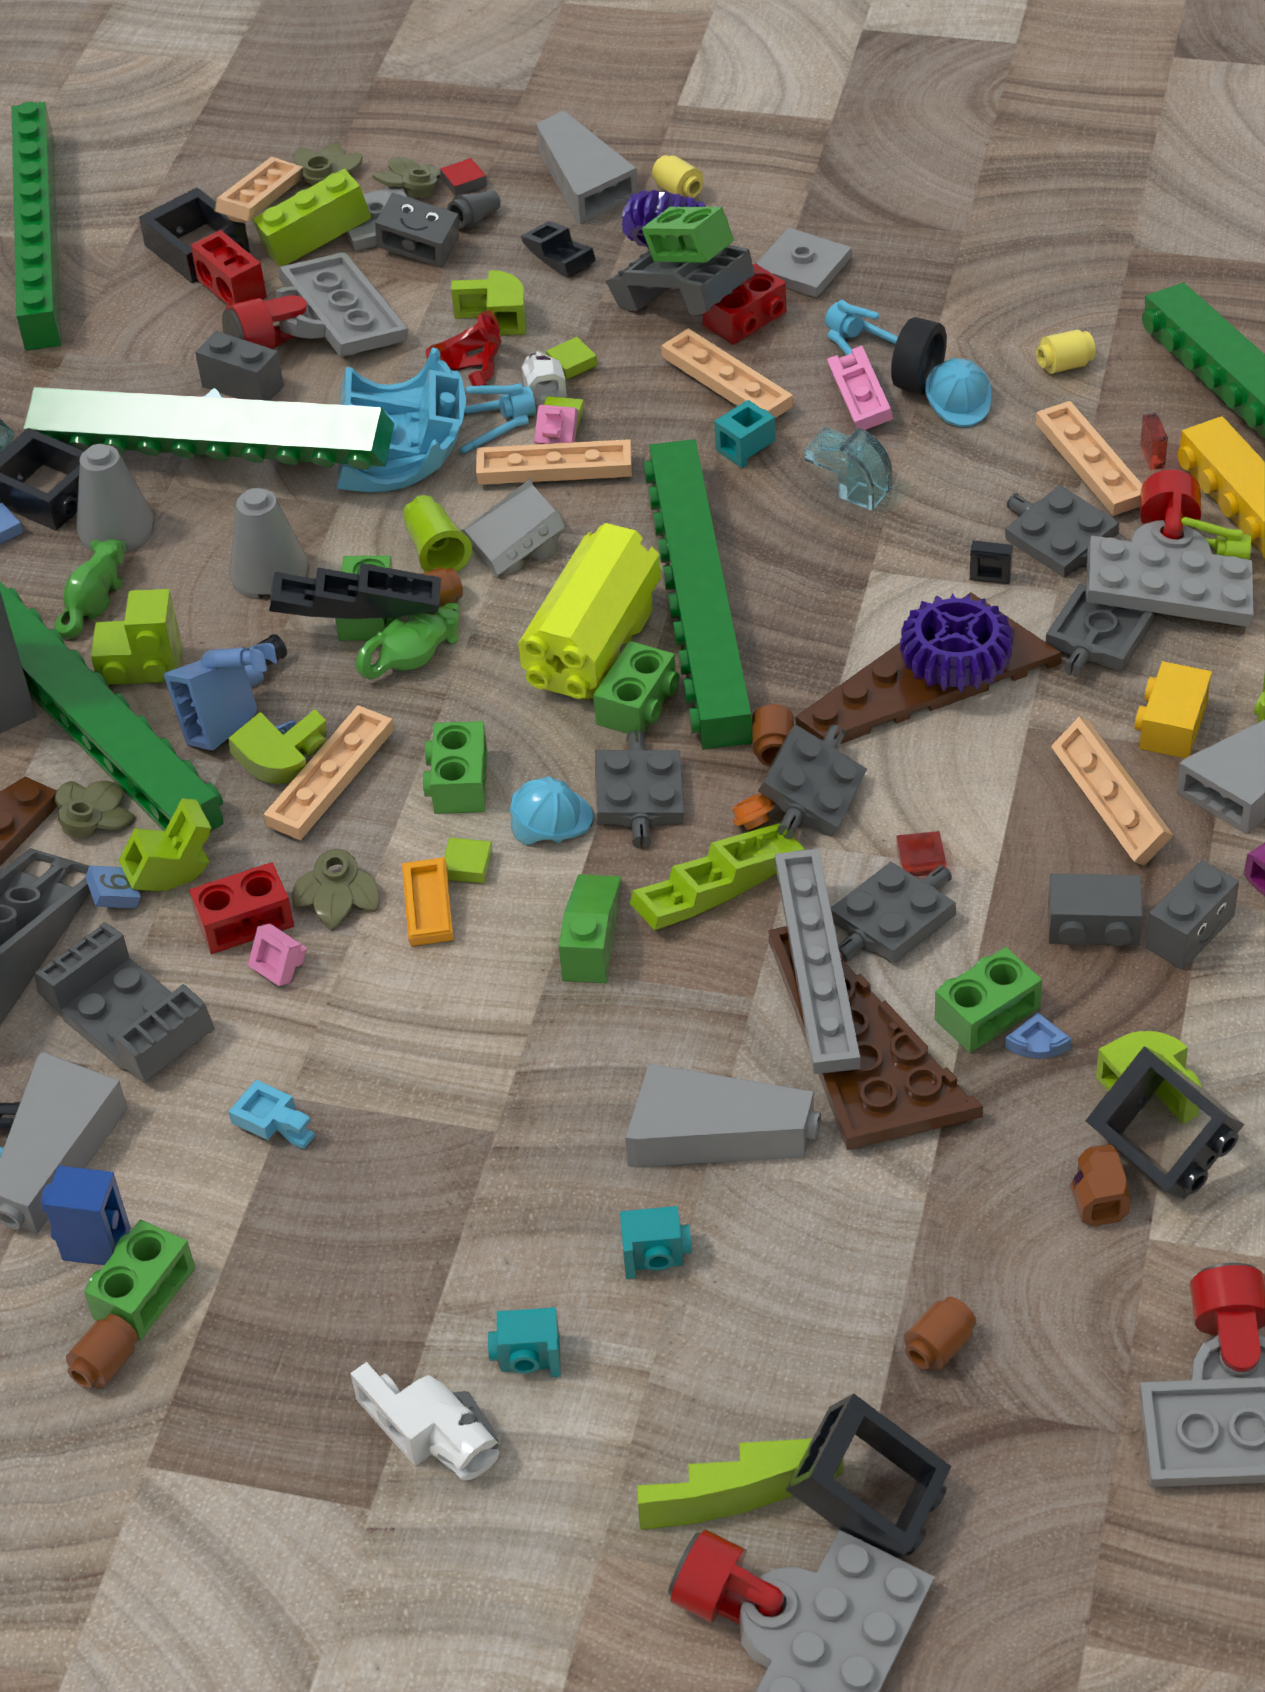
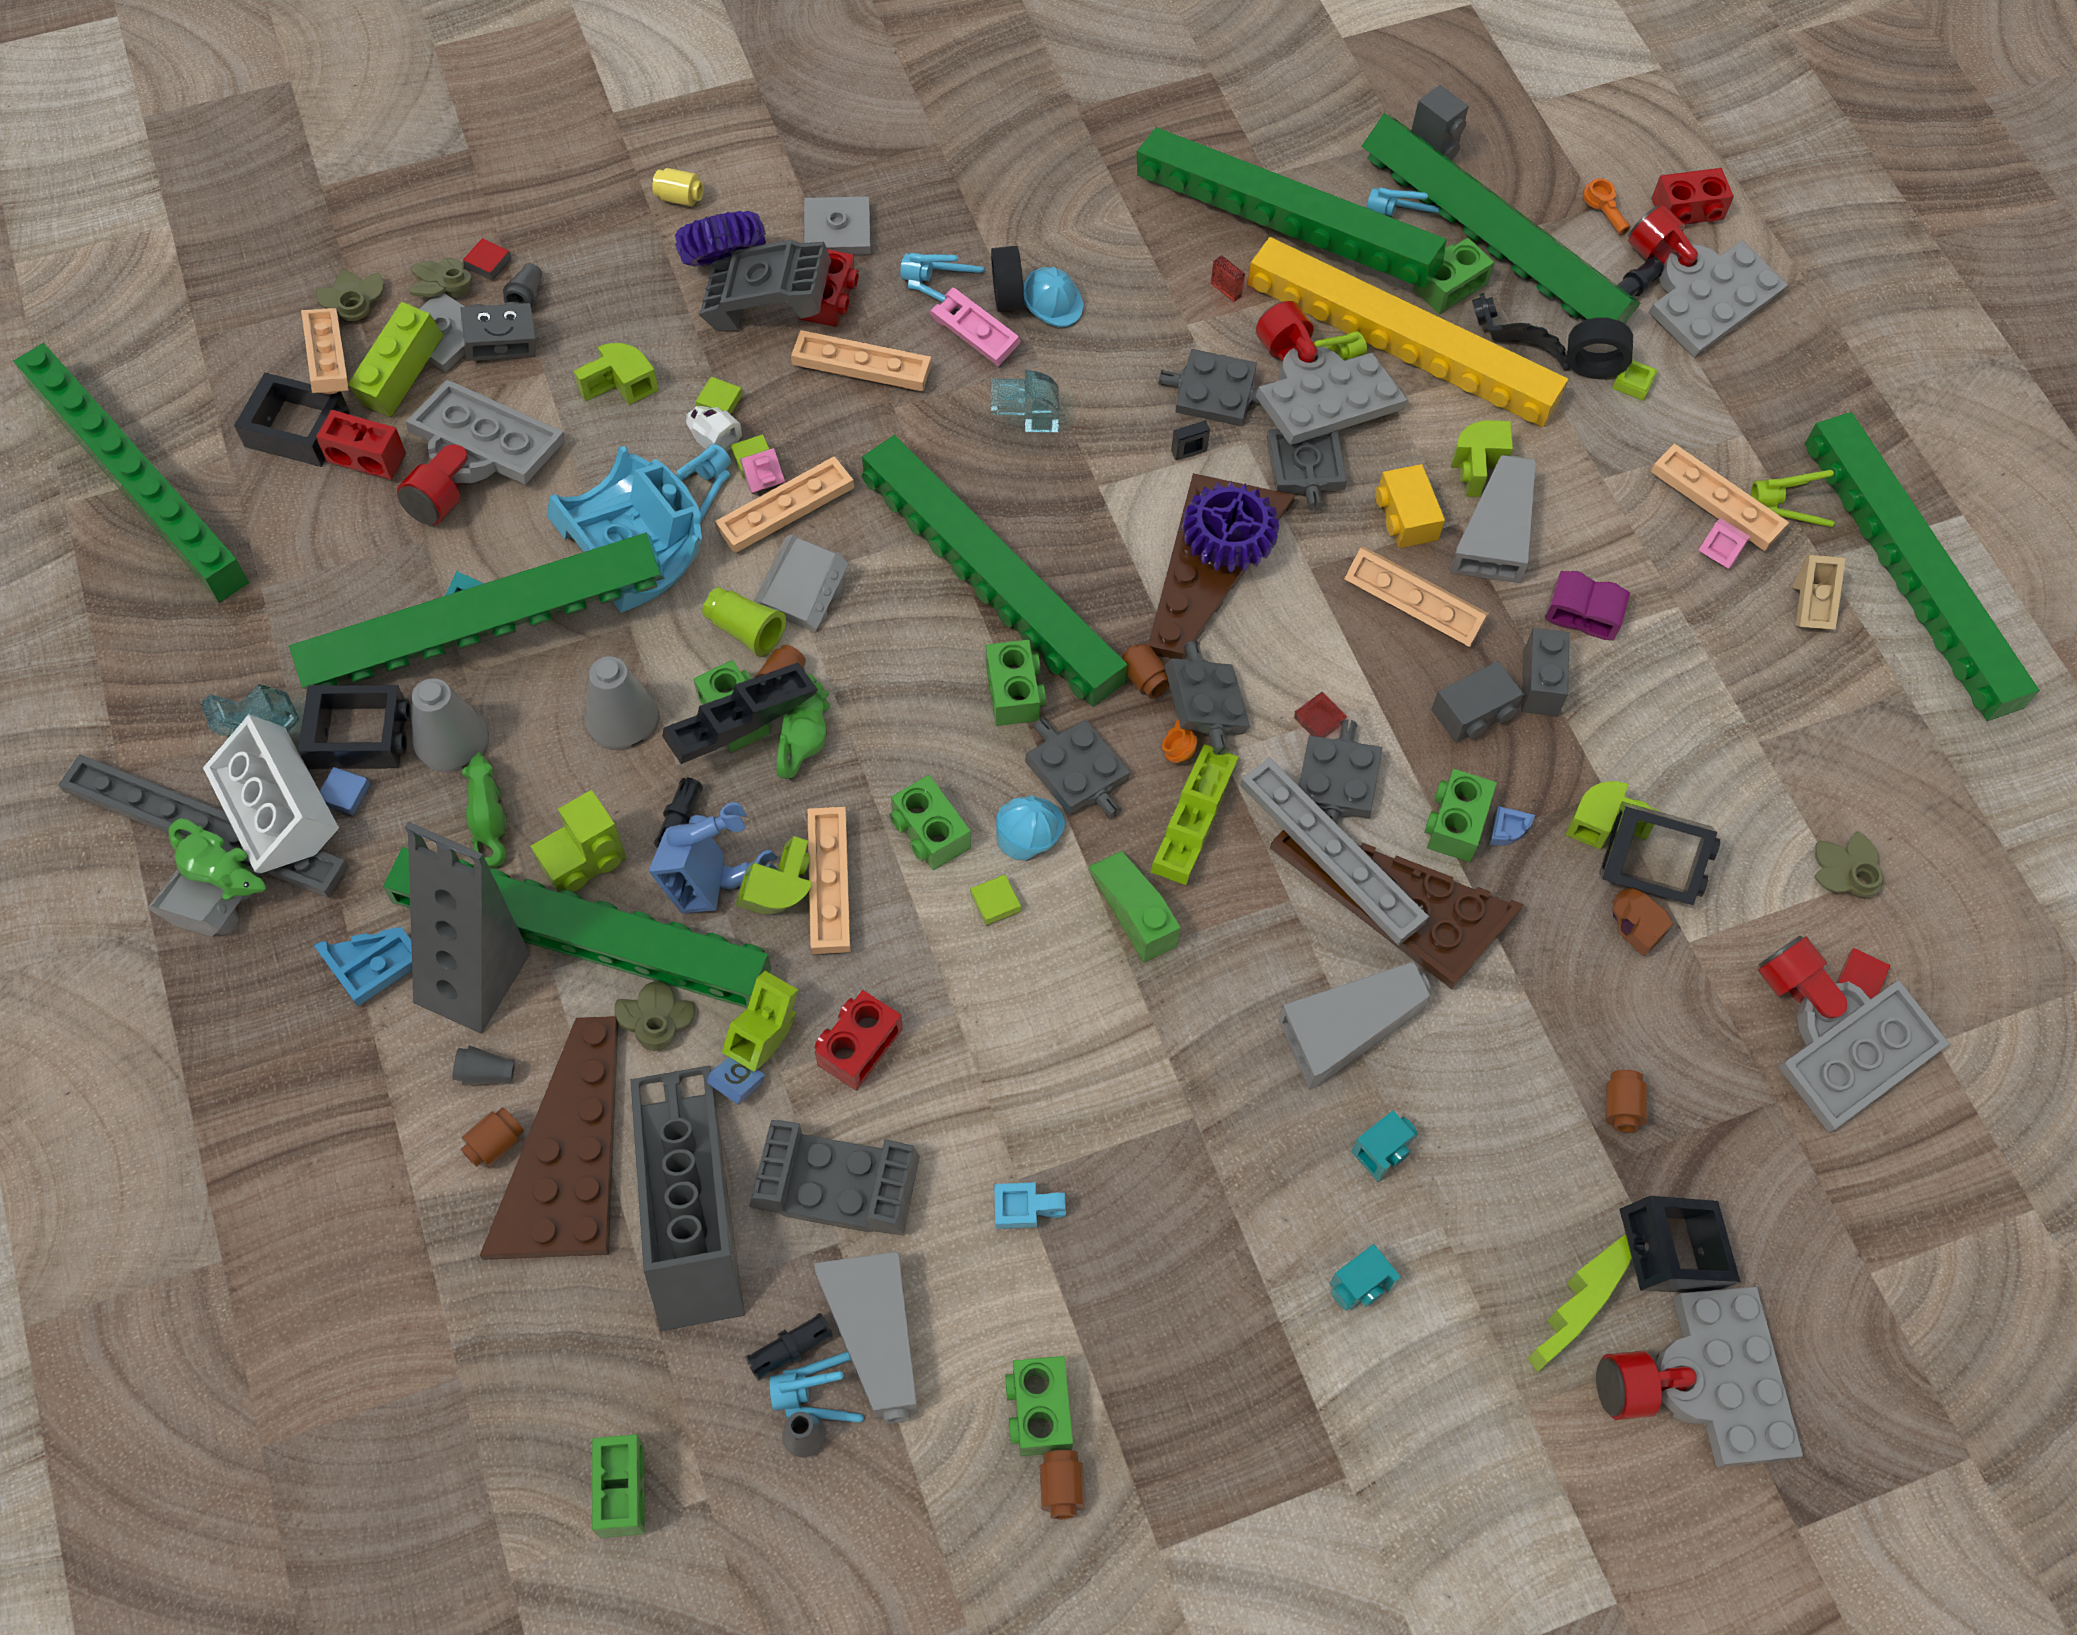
camera: 40 degrees left, 15 degrees up
(85, 1214) = (968, 1383): blue brick -> none
(239, 368) = (447, 537): dark grey brick -> none
(276, 954) = (919, 1066): bright pink tile -> none
(335, 892) = (918, 986): olive plate -> none
(427, 901) = (998, 953): light orange tile -> none
(429, 1421) = (1344, 1384): white plate -> none
(480, 335) = (614, 431): red helmet -> none
(555, 247) = (622, 297): black slope -> none
(584, 167) = (589, 208): light grey slope -> none
(591, 612) = (938, 635): neon yellow brick -> none
(688, 234) = (767, 249): bright green brick -> none
(744, 432) = (919, 408): teal brick -> none
(1065, 351) = (1104, 224): light yellow brick -> none
(1090, 457) = (1191, 312): light nougat plate -> none

